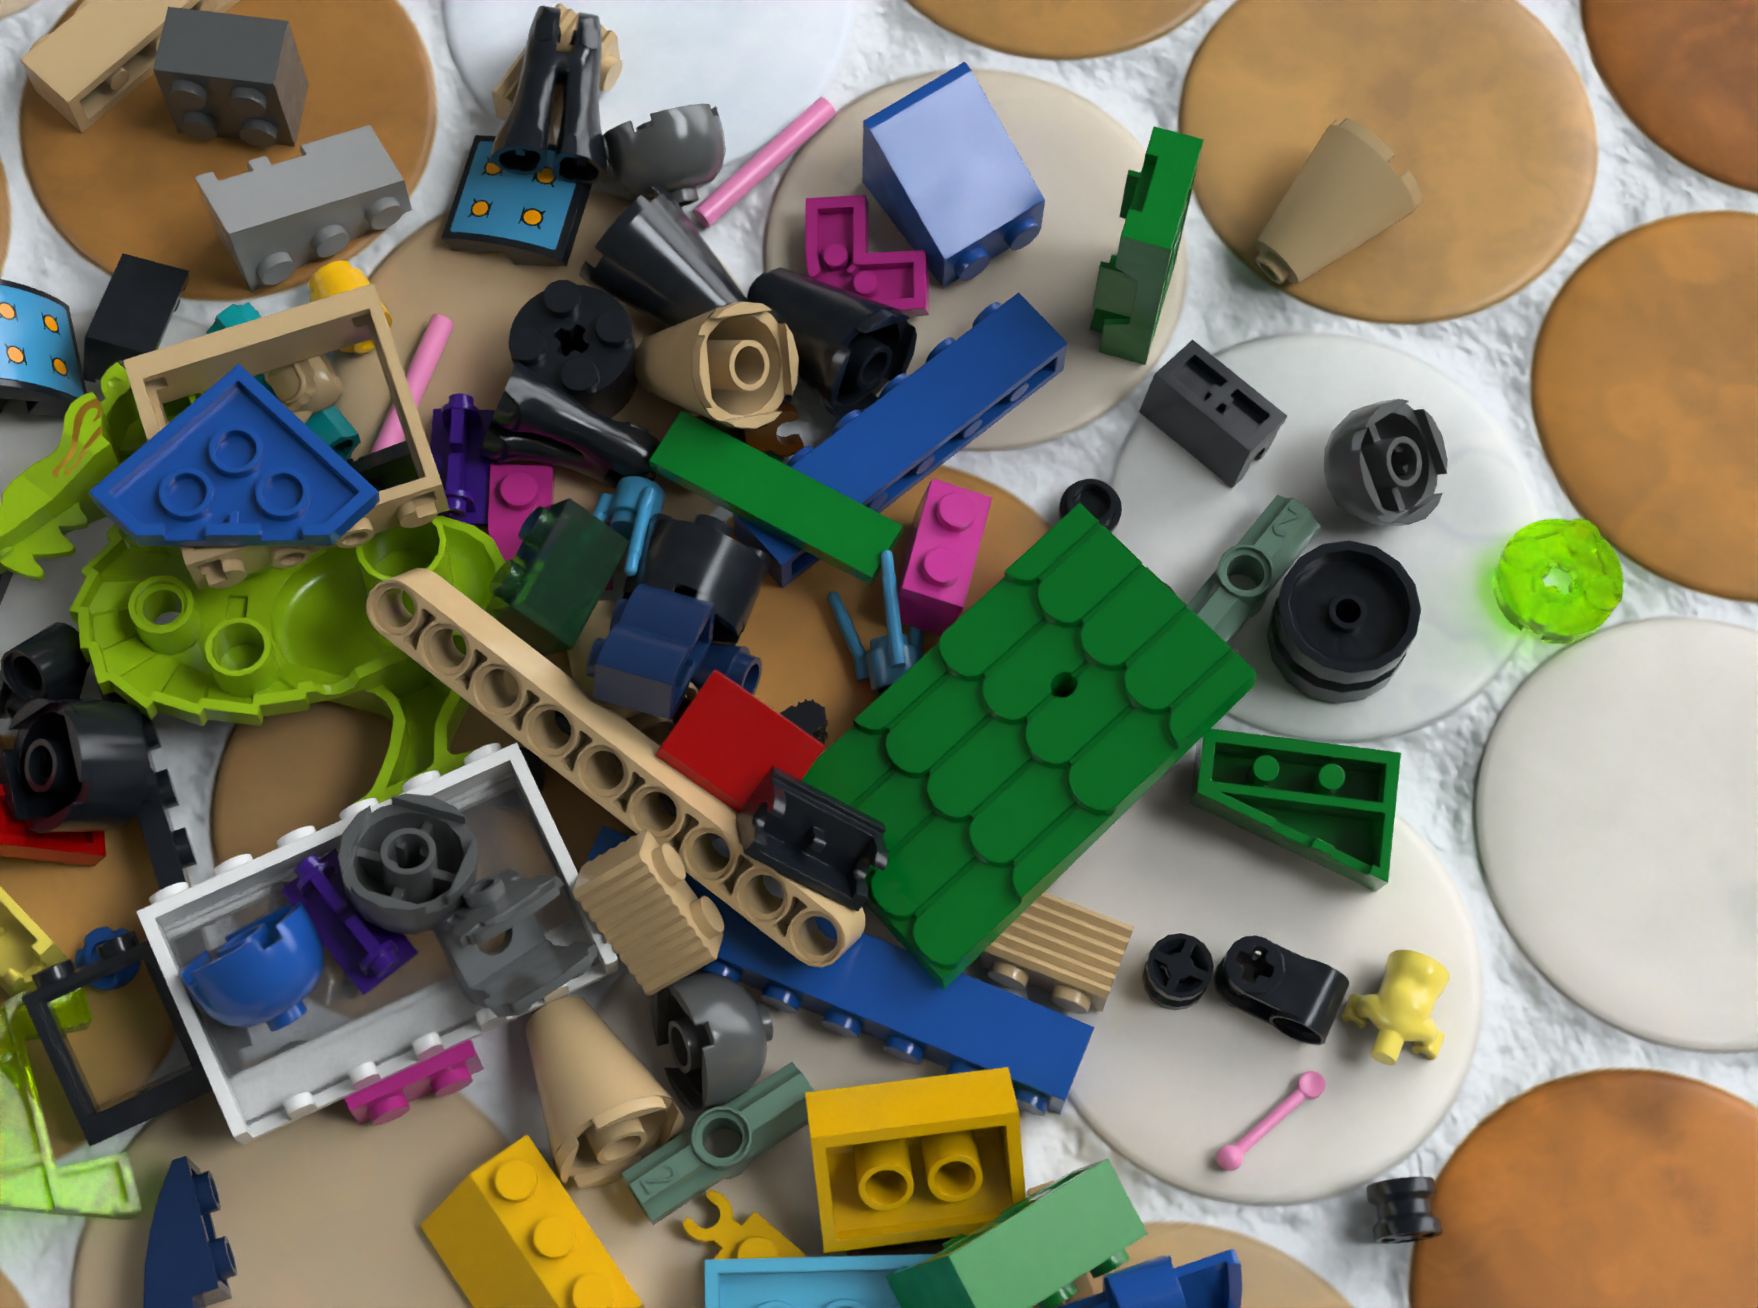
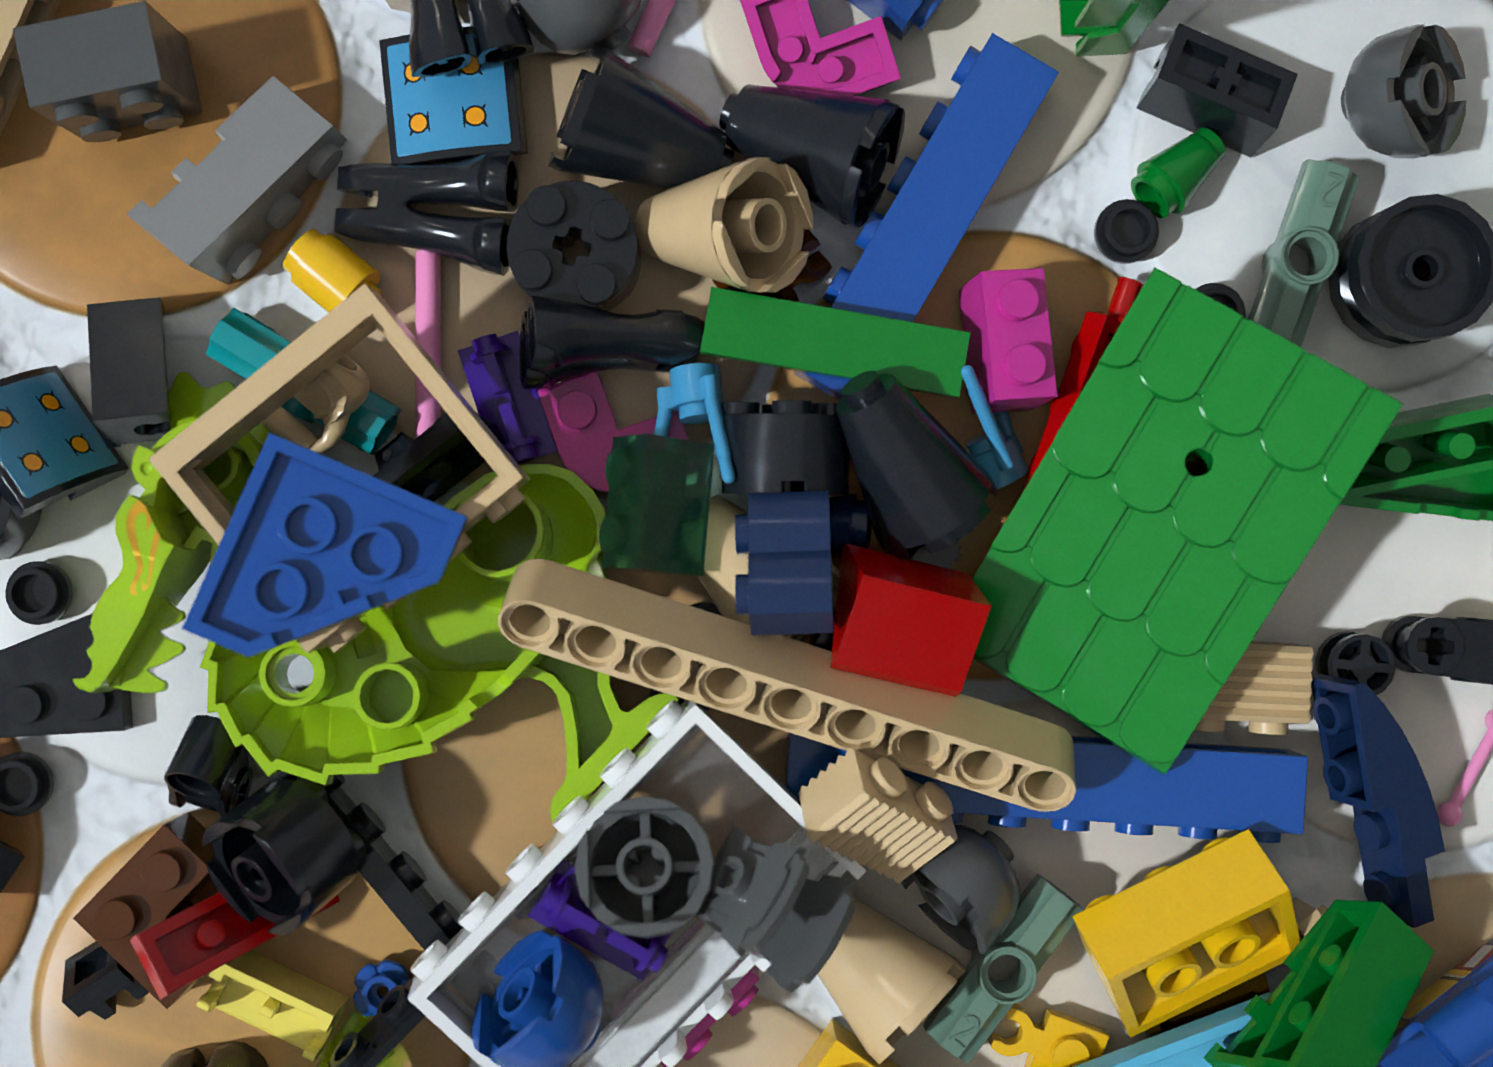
camera: 15 degrees left, 20 degrees up
(508, 272) = (477, 182): none -> black piece
(801, 618) = (910, 468): none -> black cone
(812, 837) = (1008, 698): black hinge -> none
(1153, 472) = (1177, 173): none -> green cone
(1160, 1066) = (1380, 776): none -> dark blue slope

